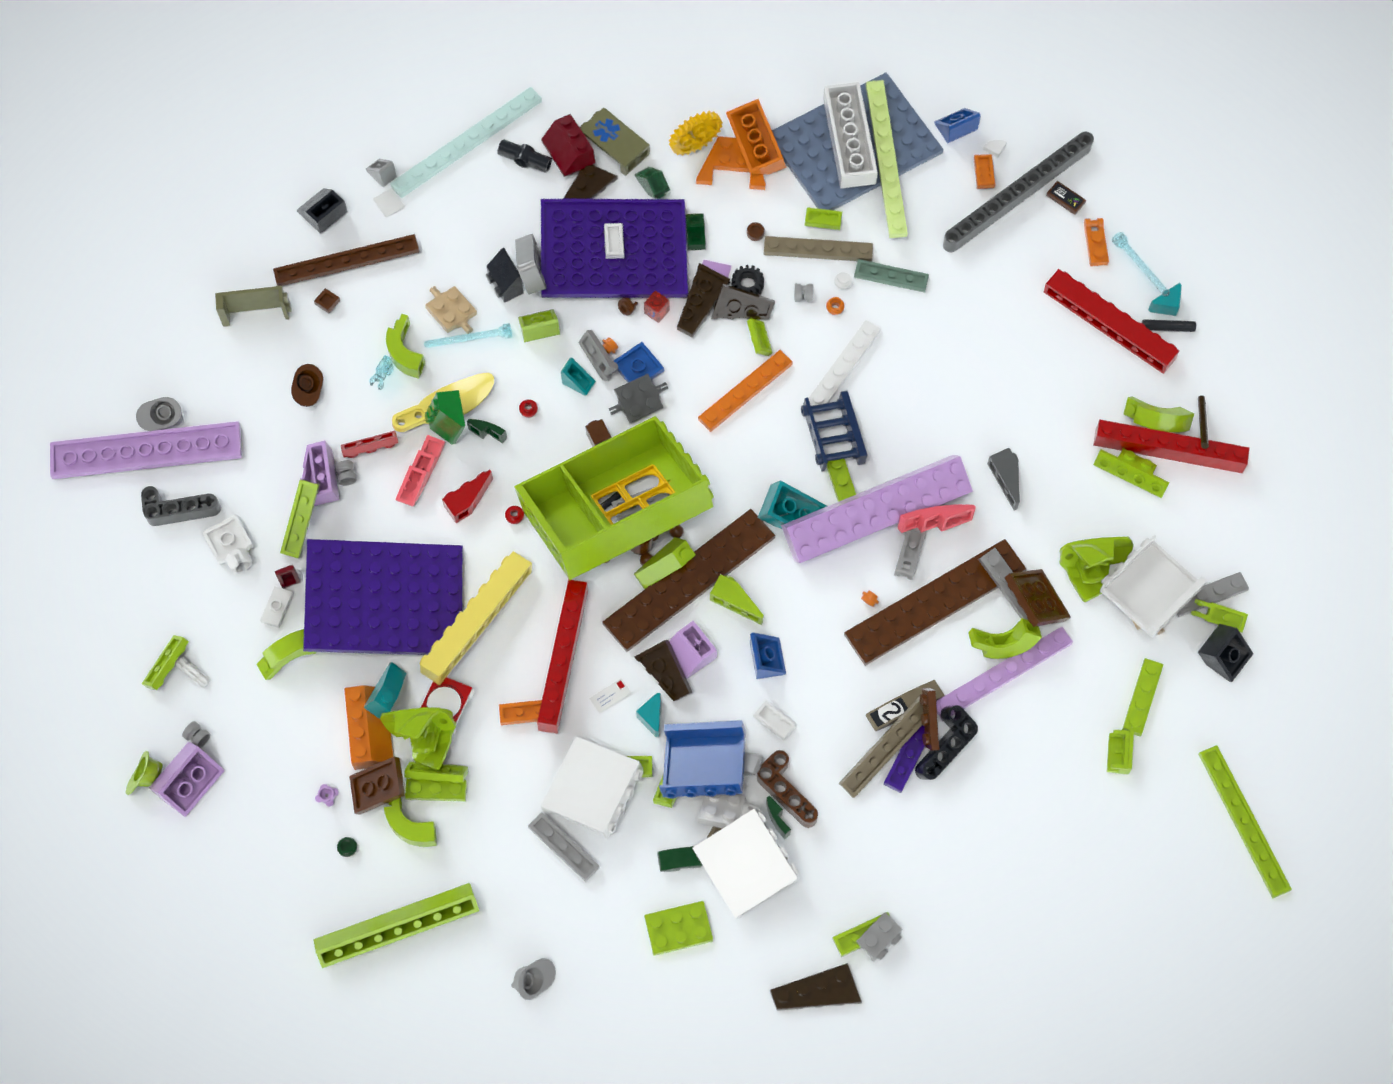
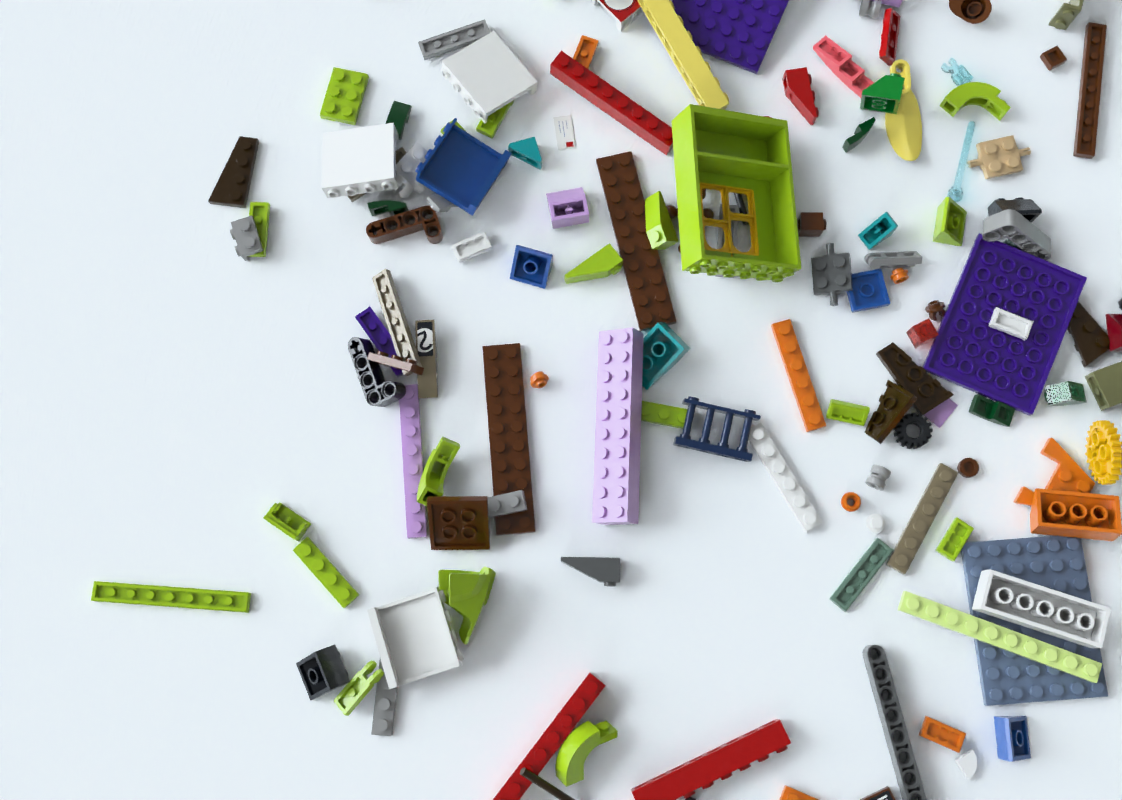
camera: 120 degrees right, 10 degrees up
(528, 412) = (862, 182): red plate -> none
(665, 668) = (563, 181): dark brown wing -> none
(910, 553) = (565, 439): light grey plate -> none
(938, 516) = (581, 484): coral slope -> none
(1133, 470) = (544, 694): lime bracket -> none

